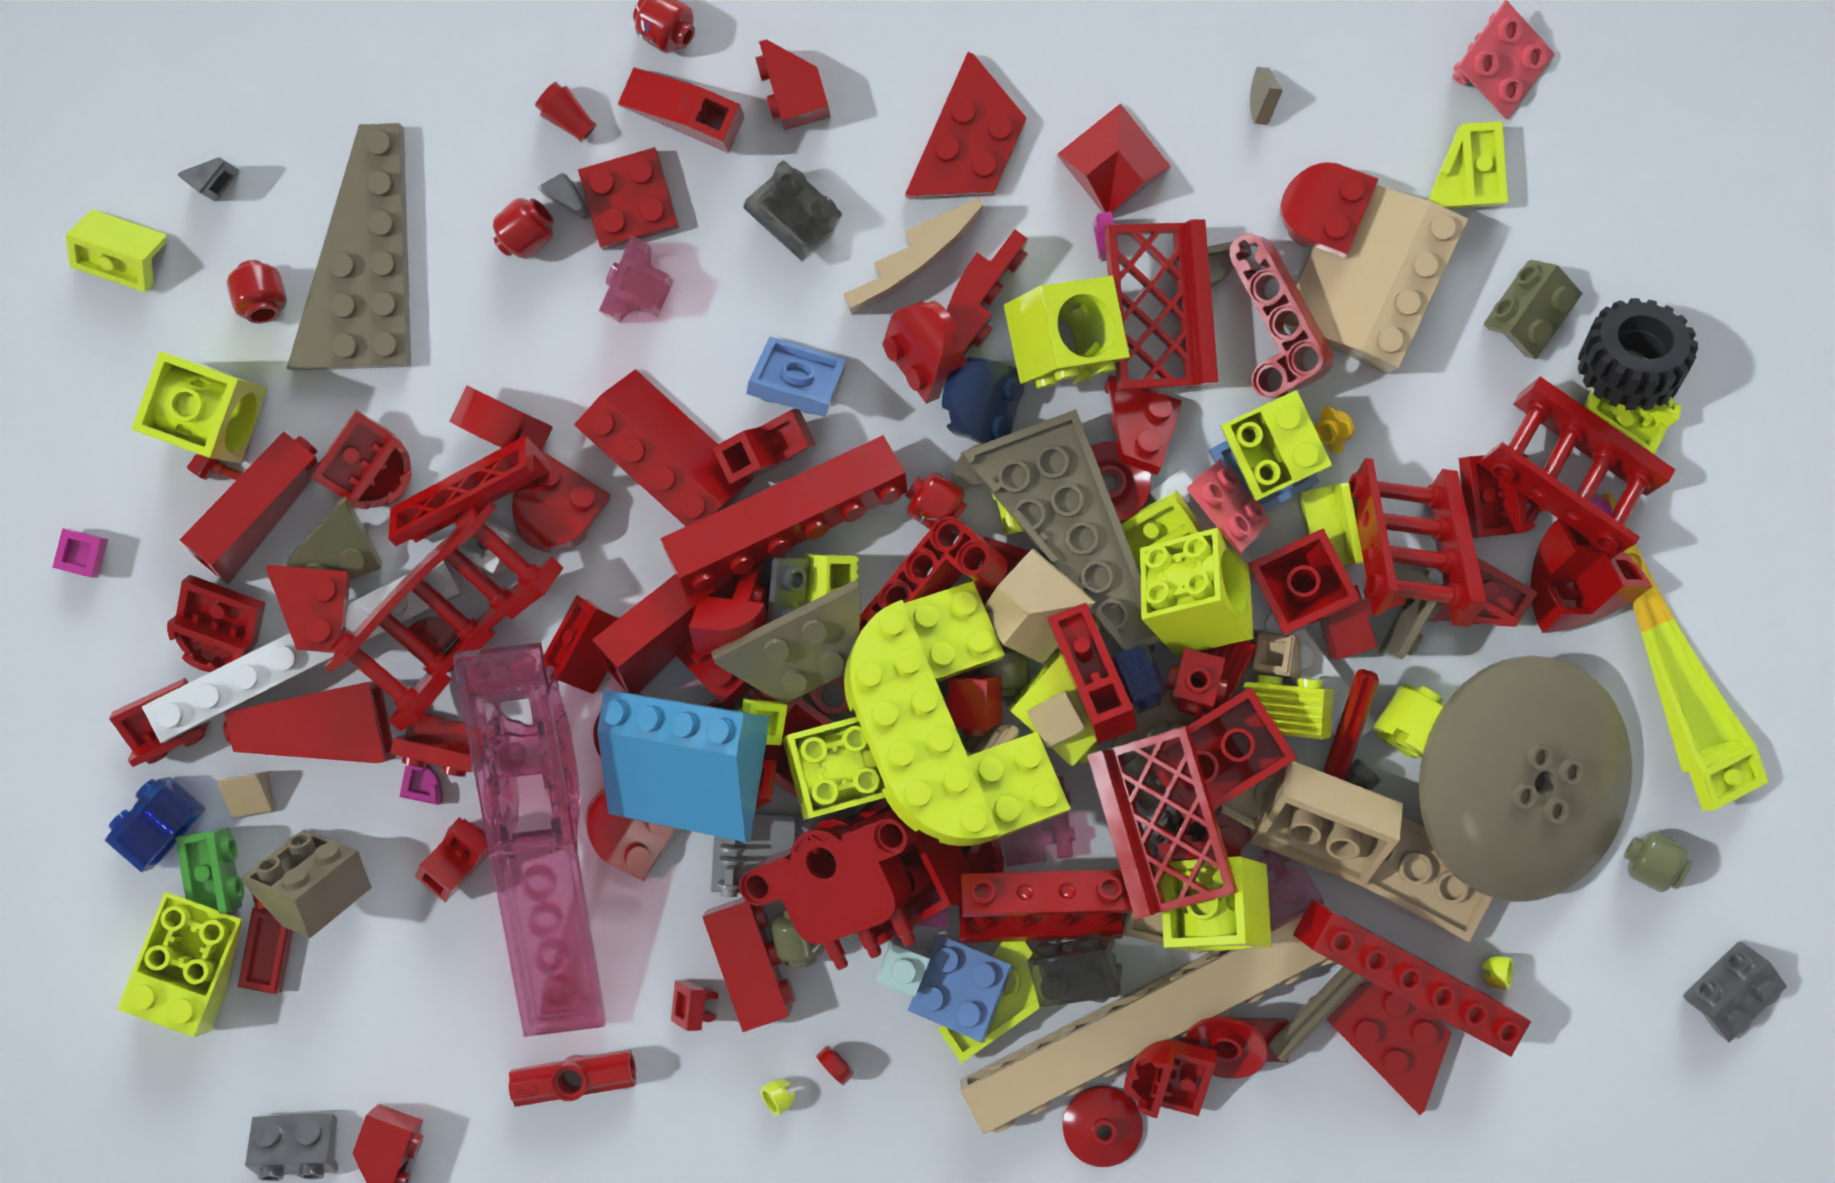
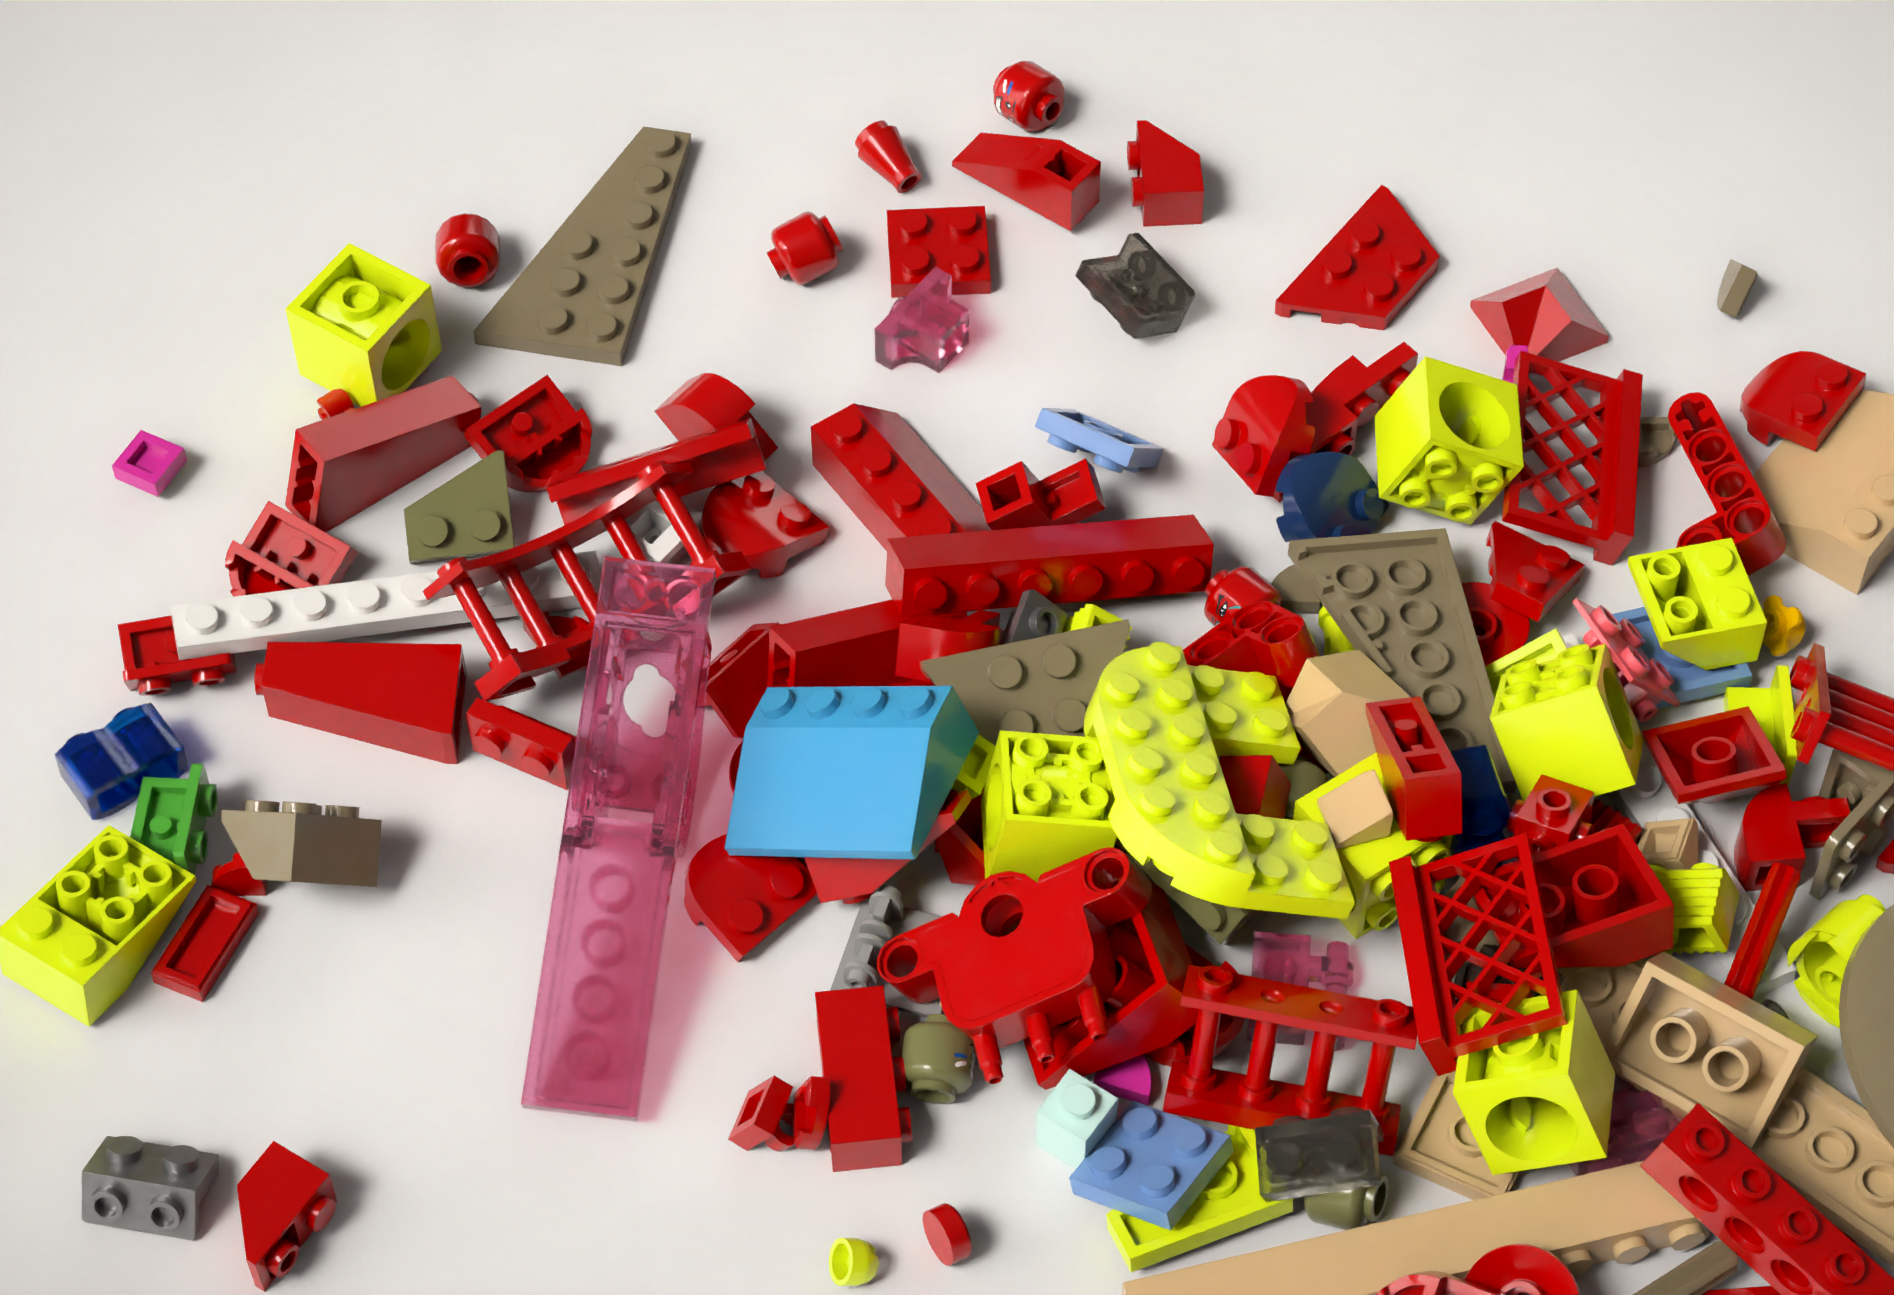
camera: 15 degrees right, 35 degrees down
(114, 249) = (311, 190): neon yellow panel -> none
(210, 177) = (453, 139): flat silver slope -> none
(247, 794) = (251, 754): tan slope -> none
(312, 604) = (421, 541): red wing -> none
(421, 785) = (479, 793): dark pink tile -> none
(454, 859) = (503, 875): red brick -> none
(548, 1083) = (535, 1172): red piece -> none
(563, 192) = (863, 228): flat silver slope -> none
(721, 1001) = (810, 1112): none -> red tile
(926, 245) = (1292, 349): tan slope -> none

